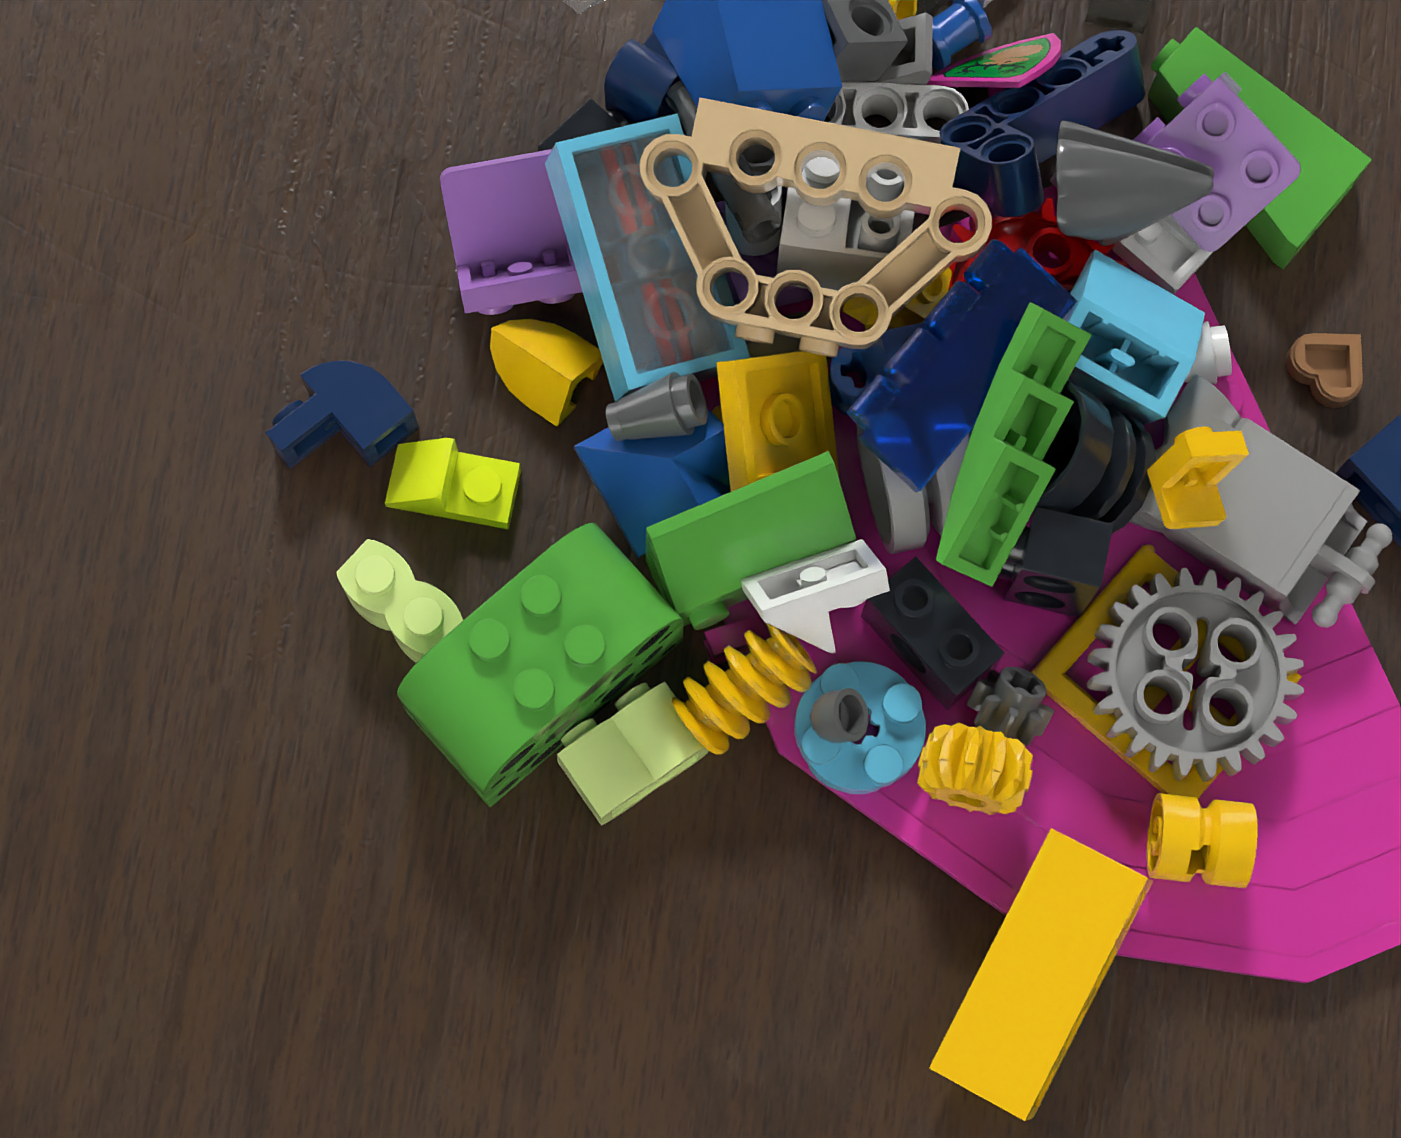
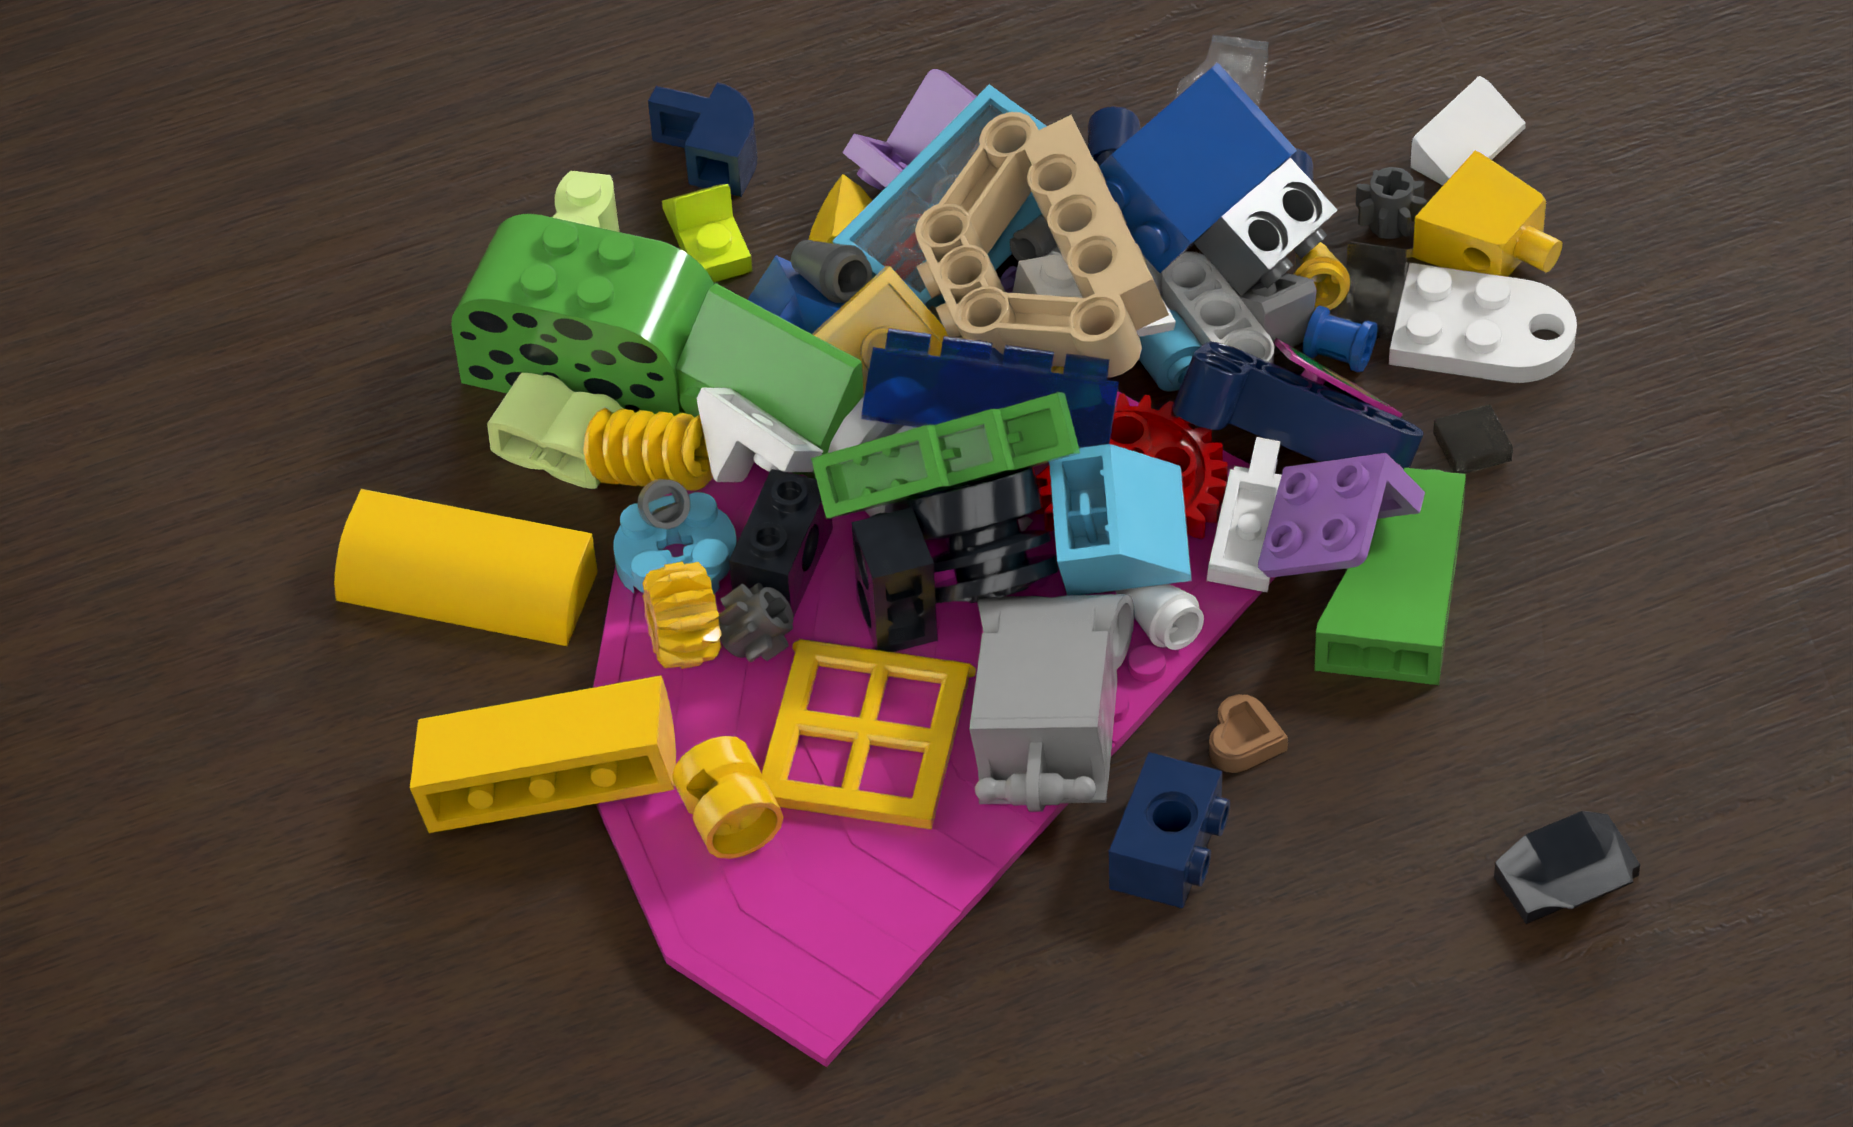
camera: 65 degrees right, 25 degrees down
(749, 928) = (464, 567): none -> yellow brick
(1120, 185) = (1237, 439): dark grey hat -> none
(1189, 475) = (1016, 598): yellow bracket -> none
(1252, 686) = (845, 712): light grey gear -> none

